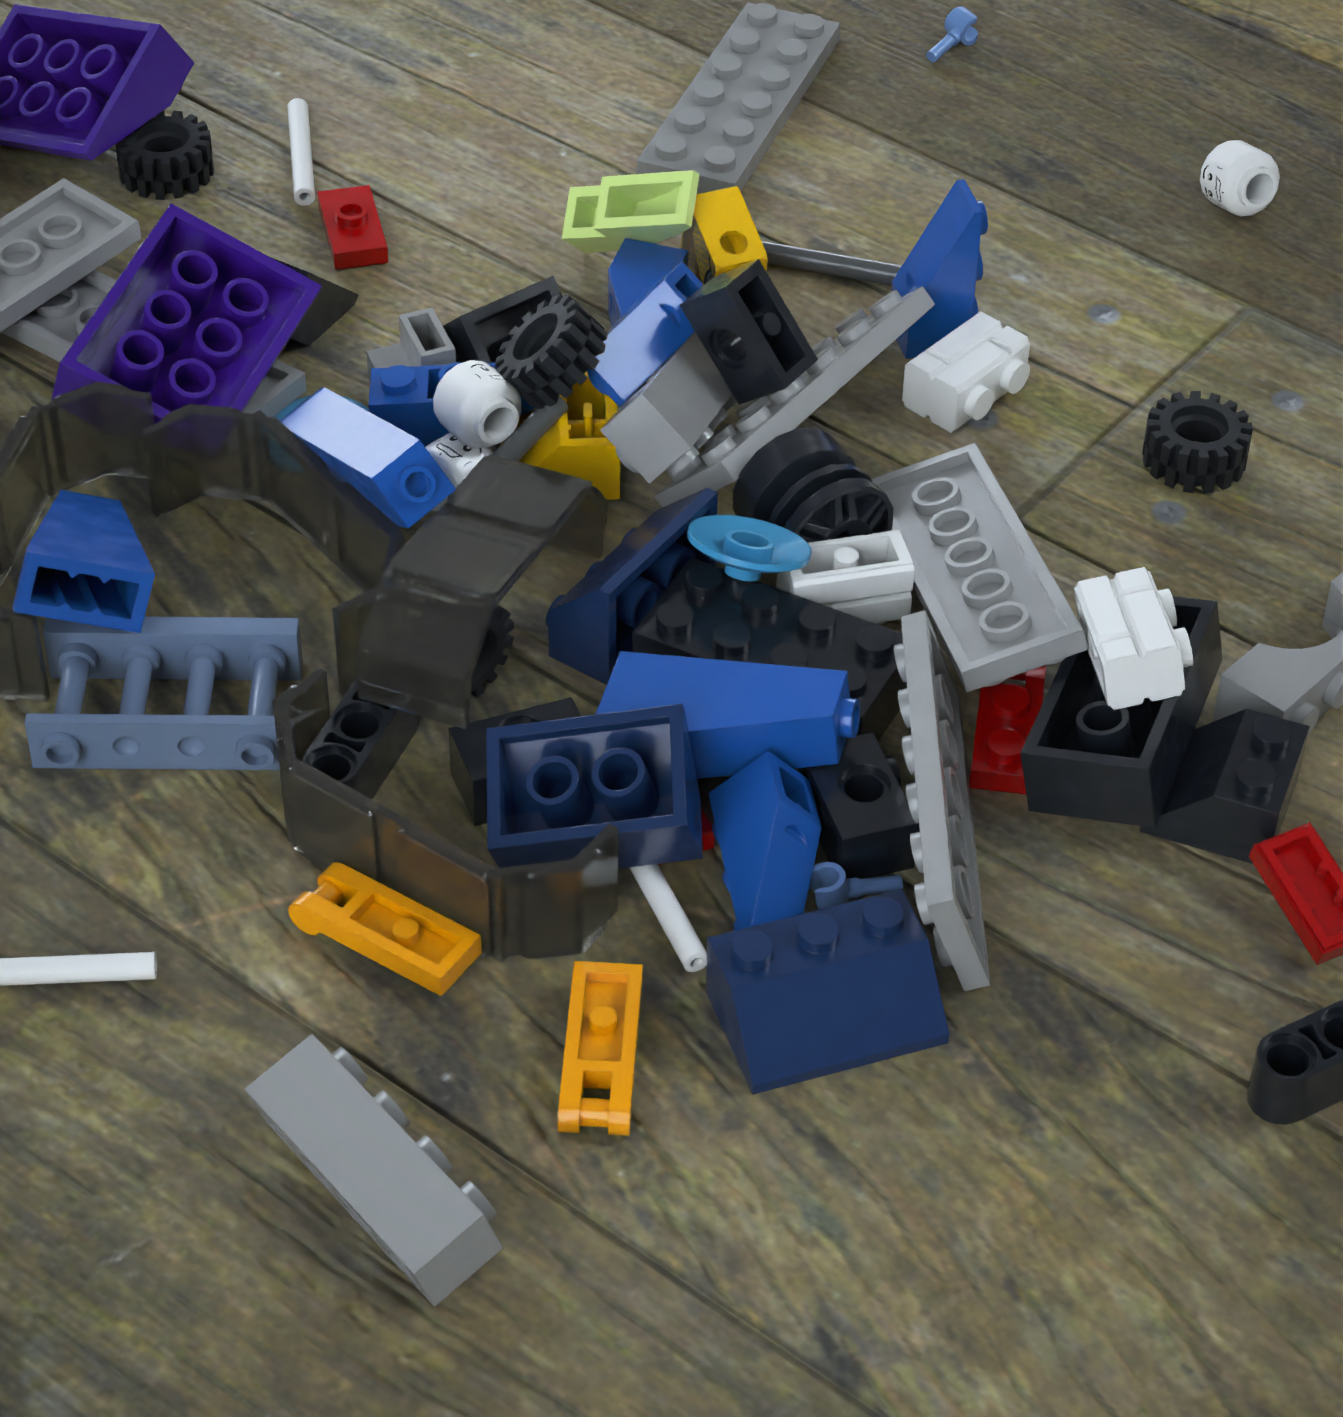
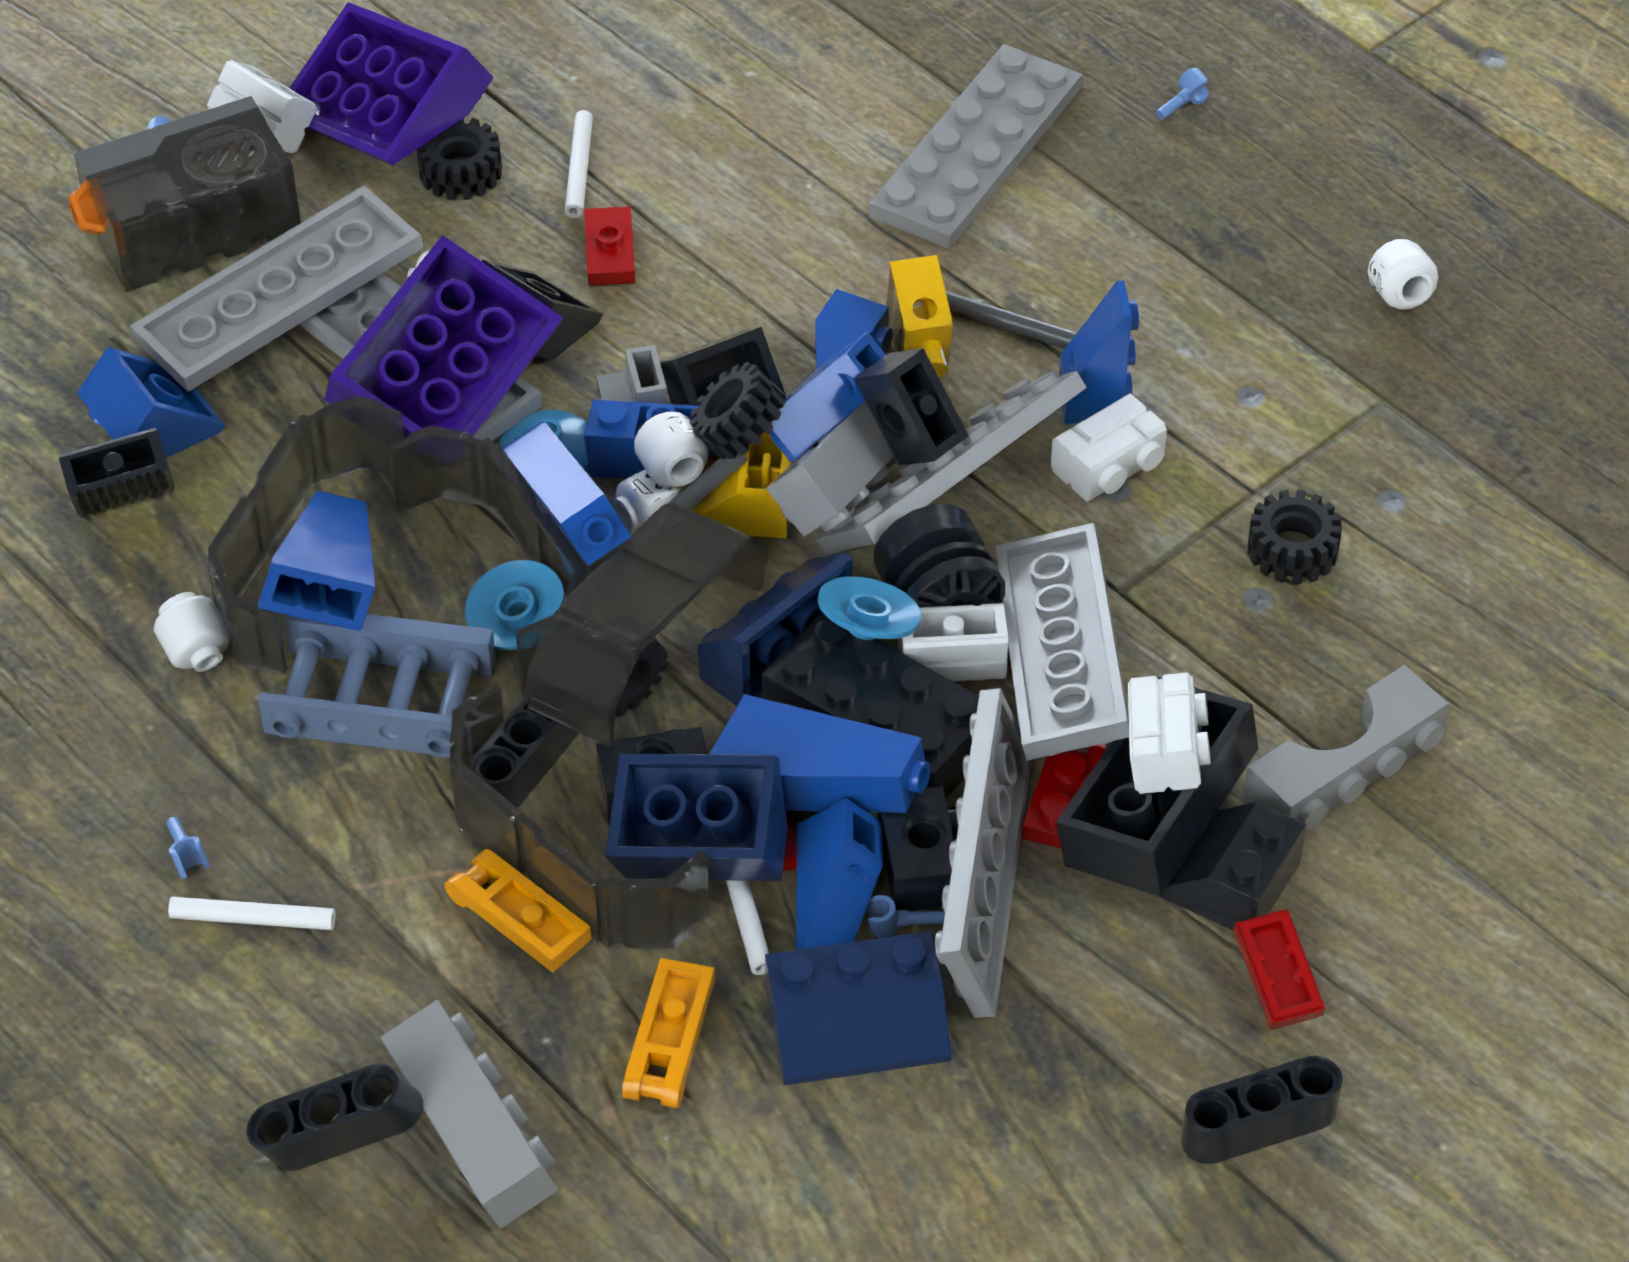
camera: 10 degrees right, 5 degrees up
(169, 1190) = (309, 1116): none -> black beam
(312, 584) = (509, 590): none -> dark azure dish
(630, 207) = (842, 264): yellowish green slope -> none

